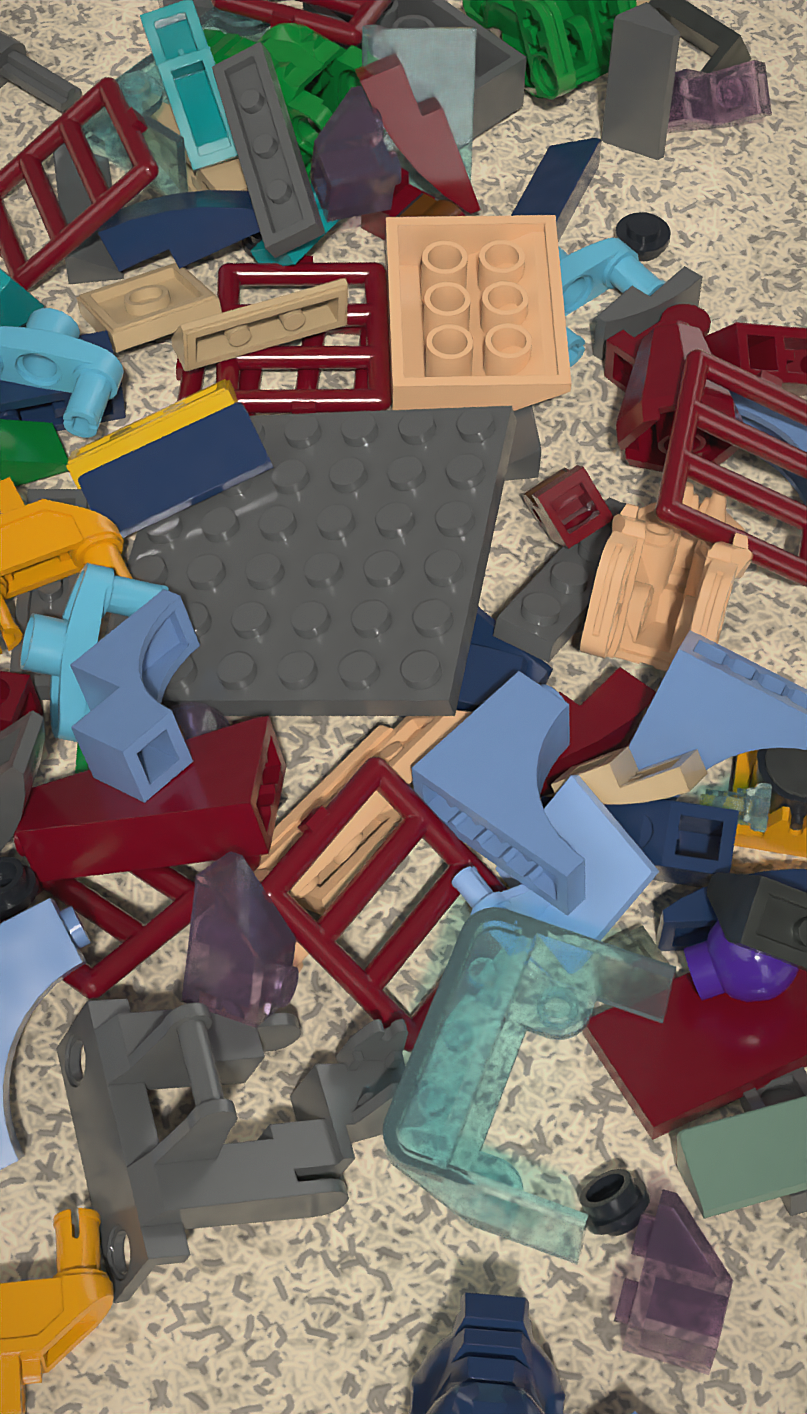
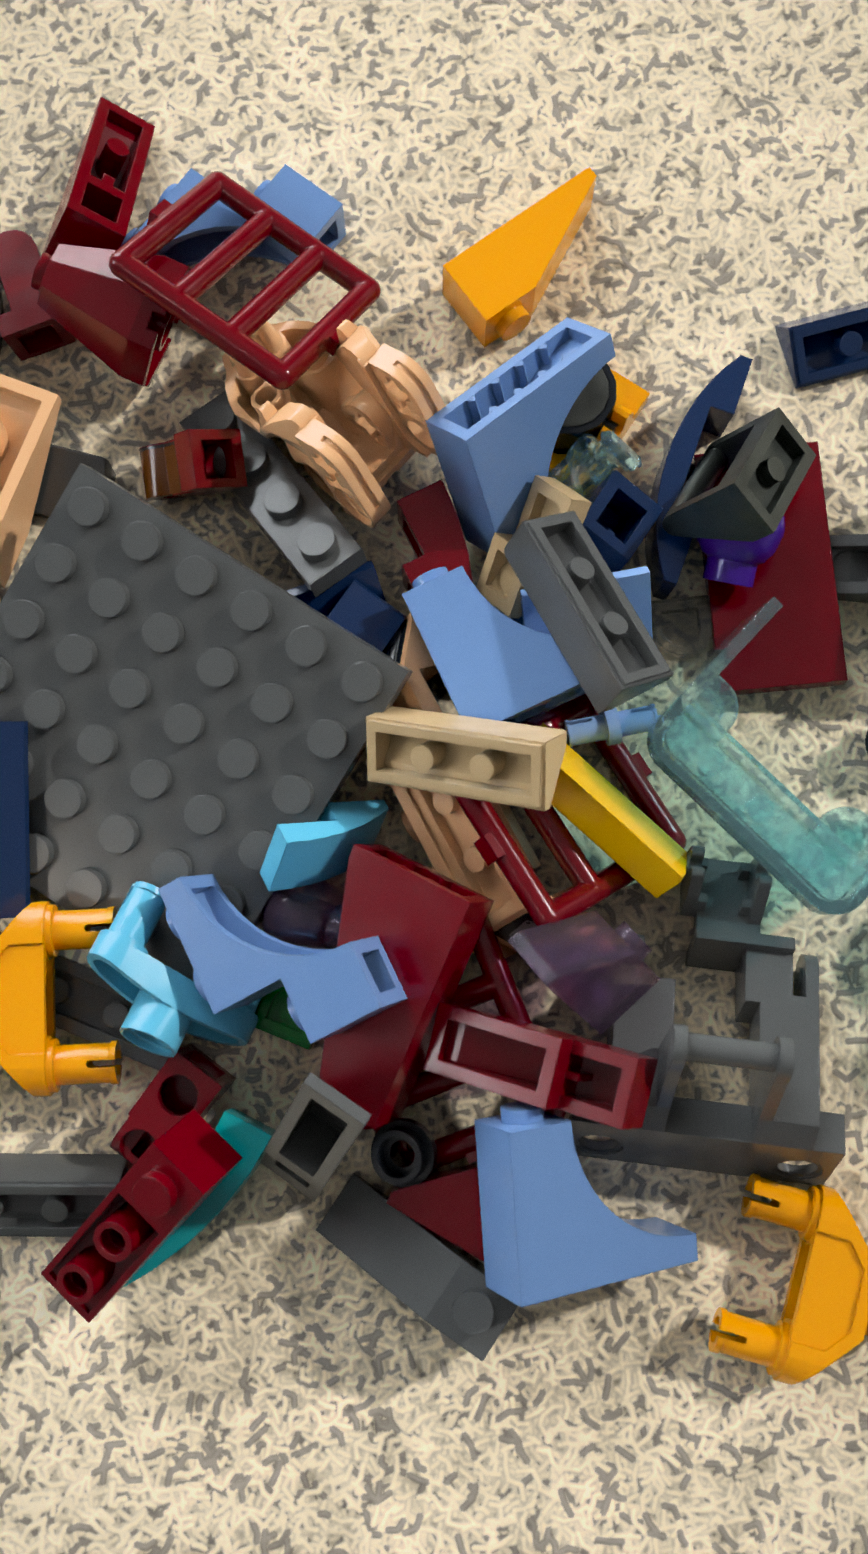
camera: 65 degrees left, 25 degrees up
(126, 939) = (541, 1066): none -> dark red slope
(251, 692) = (321, 849): none -> medium azure slope
(387, 758) = (465, 756): none -> tan slope
(401, 921) = (617, 825): none -> yellow slope
(577, 808) = (585, 610): none -> dark grey slope

